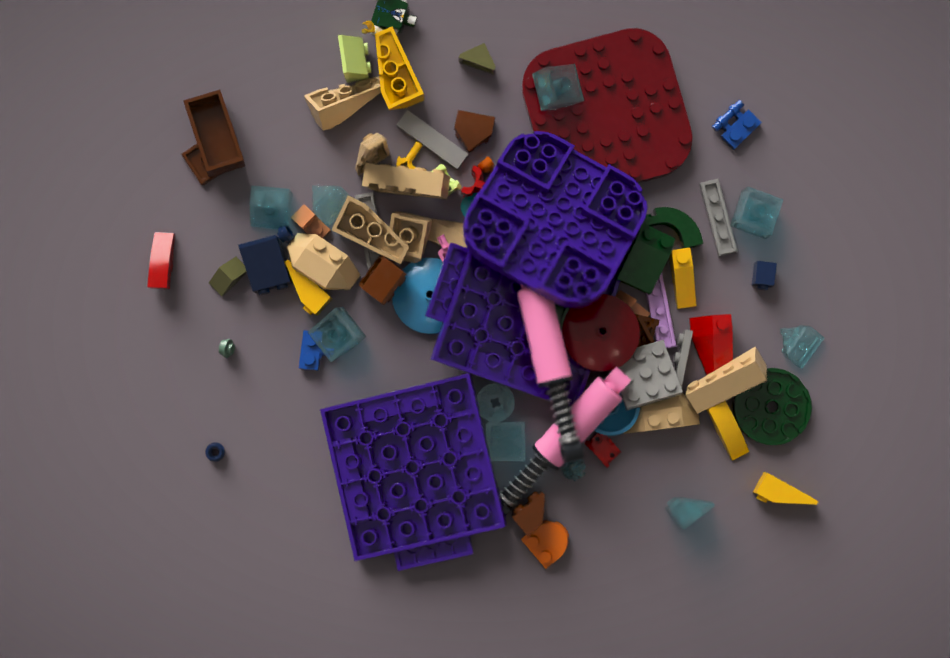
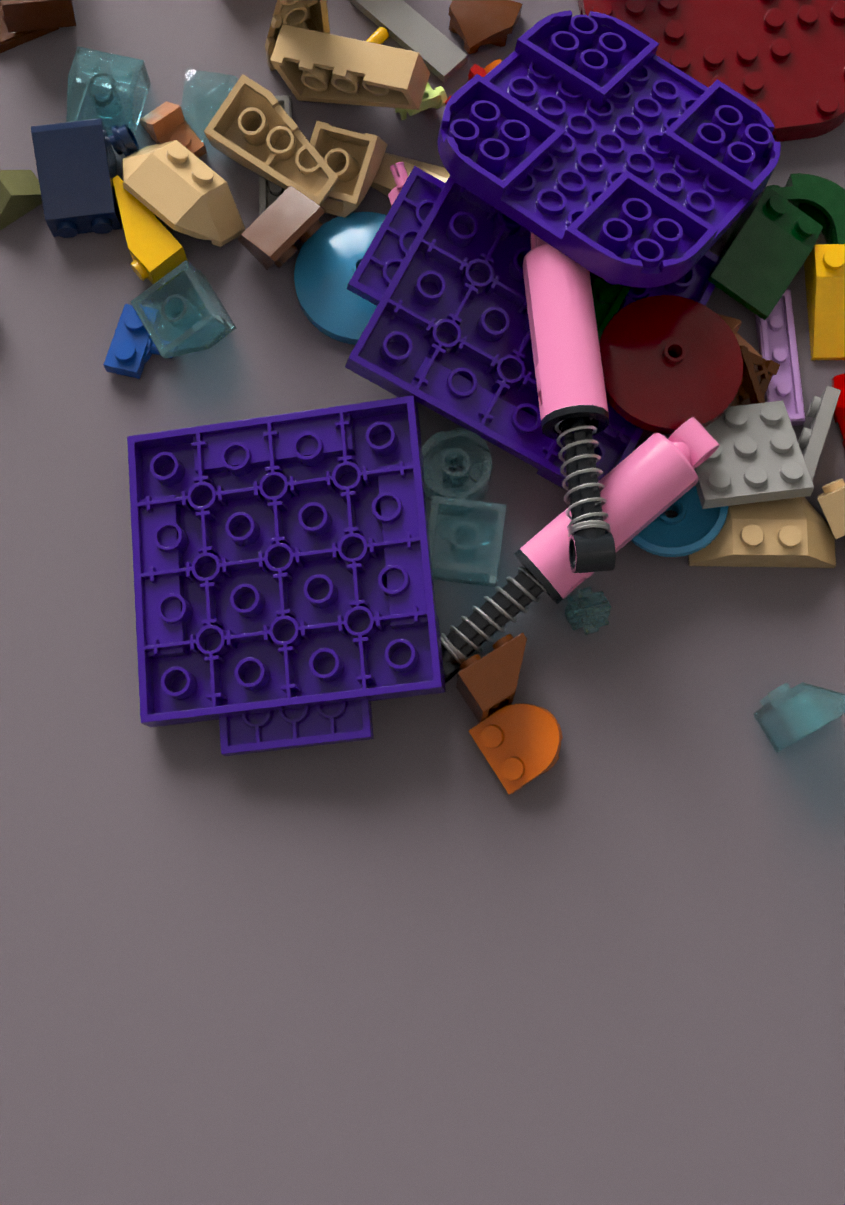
camera: 10 degrees right, 10 degrees down
(603, 448) = (648, 584): red piece -> none

